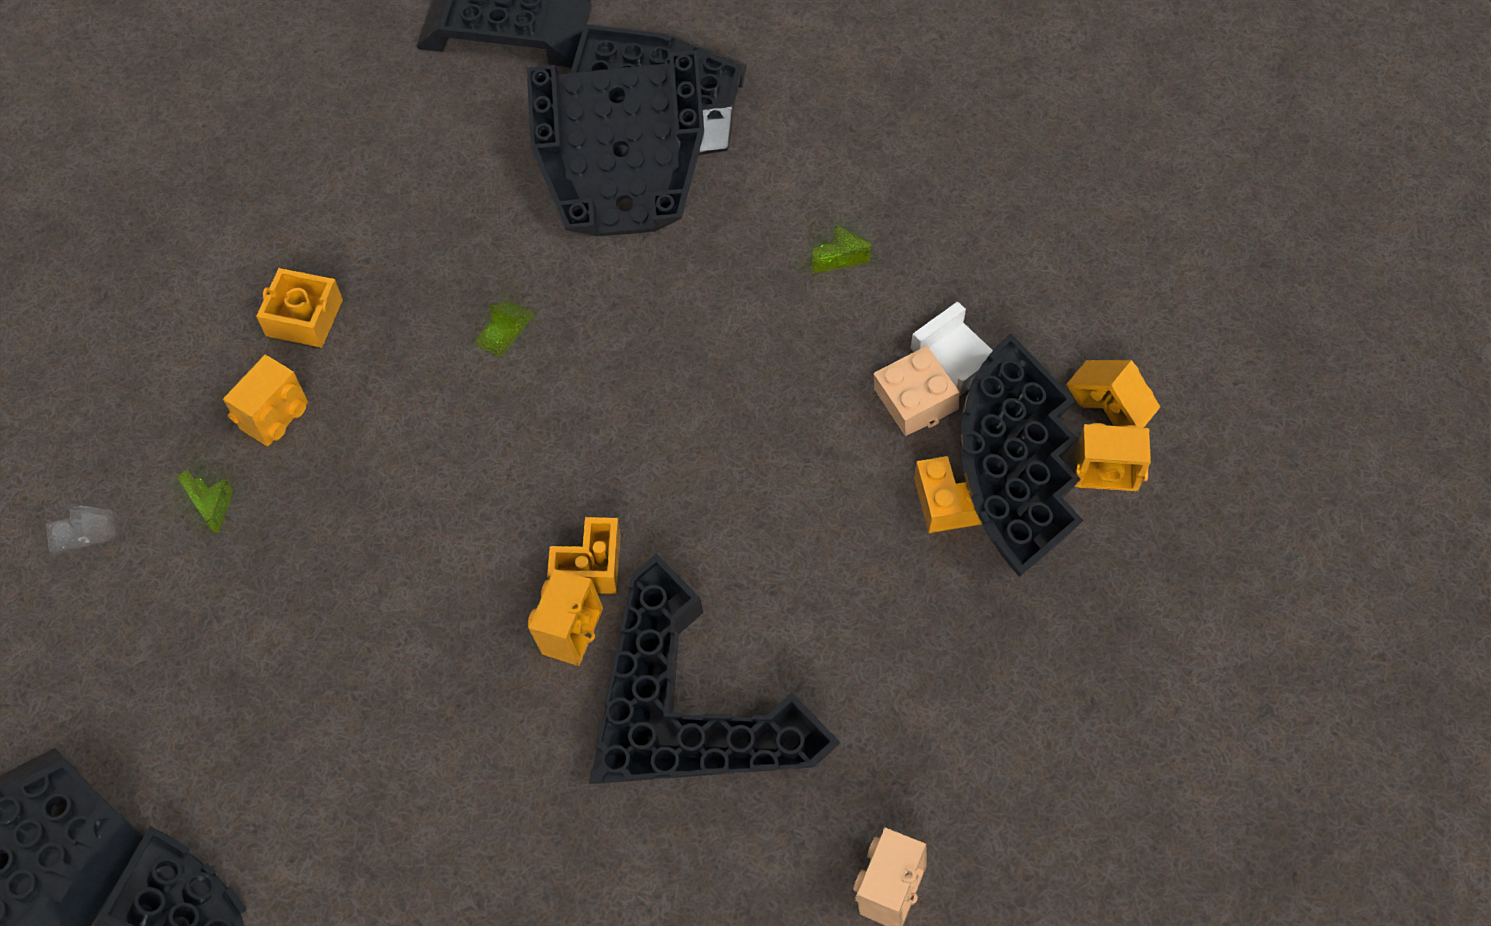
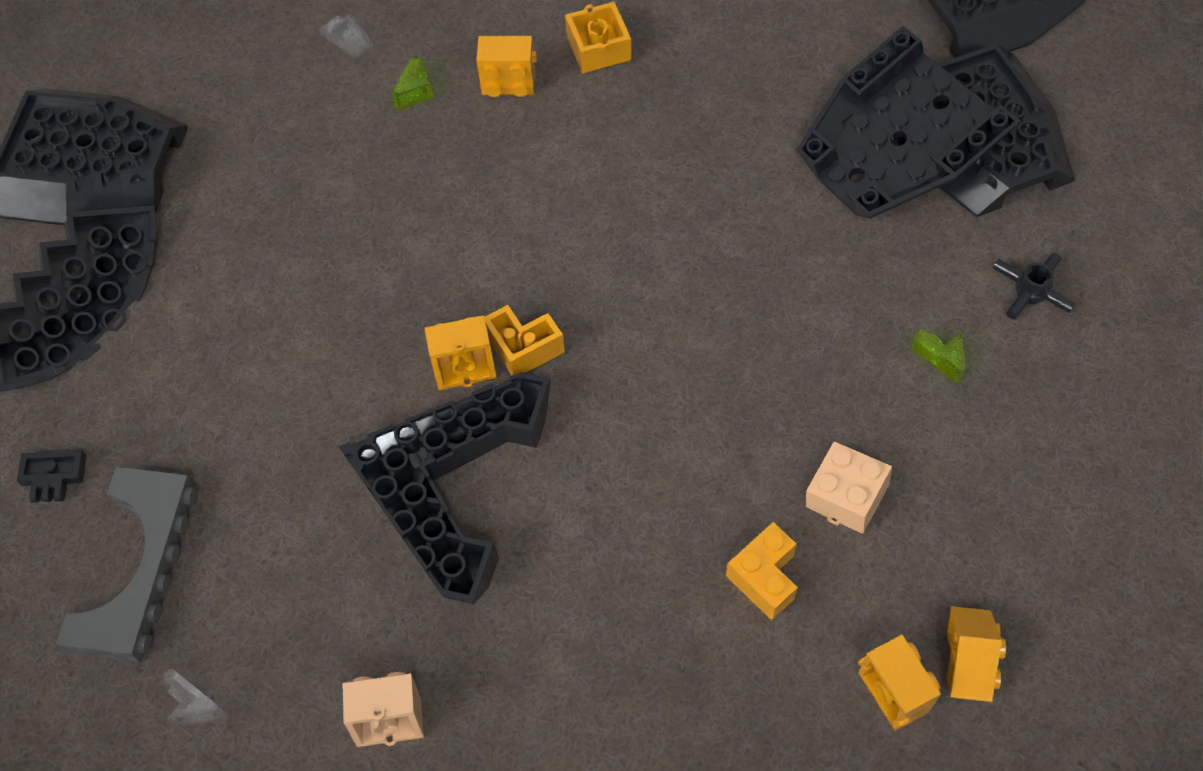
camera: 60 degrees right, 0 degrees up
(504, 328) = (686, 170): clear neon green slope -> none
(824, 152) = (1034, 285): none -> black bar
(953, 346) = (919, 499): white panel -> none
(1015, 453) = (832, 595): black brick -> none

